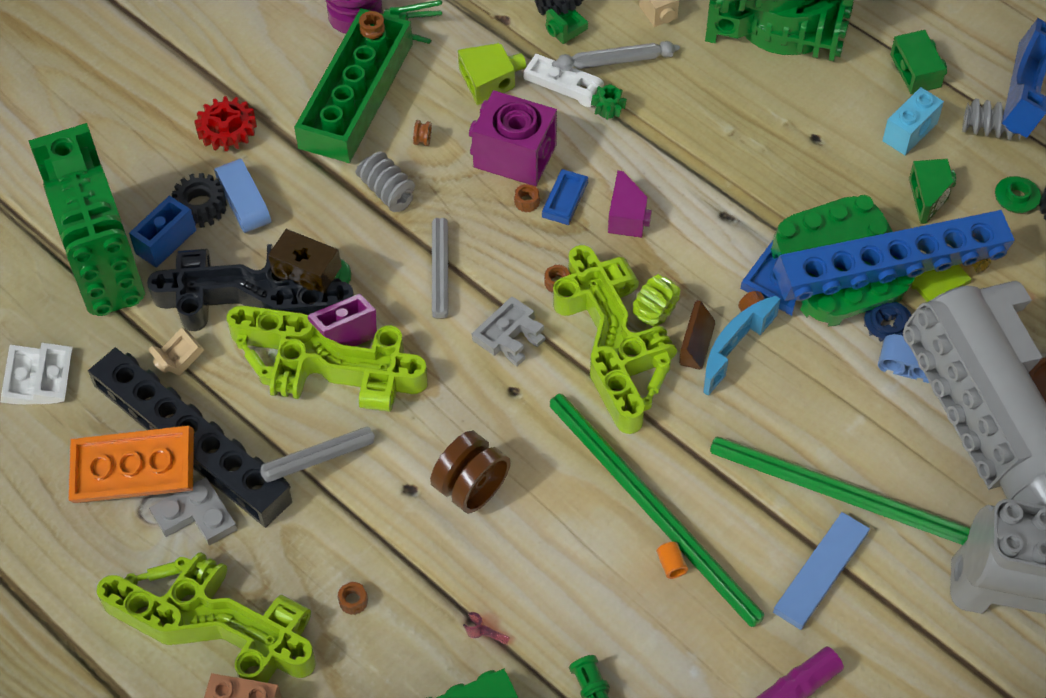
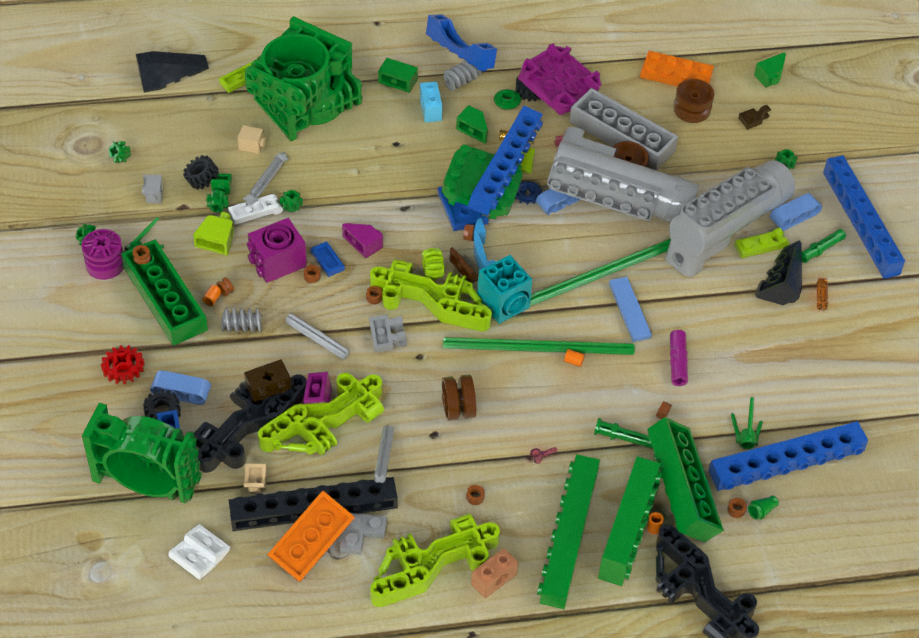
camera: 55 degrees left, 5 degrees down
(400, 130) = (212, 295): none -> orange hinge
(535, 38) = (217, 201): none -> green gear
(688, 401) = (504, 288): none -> teal brick

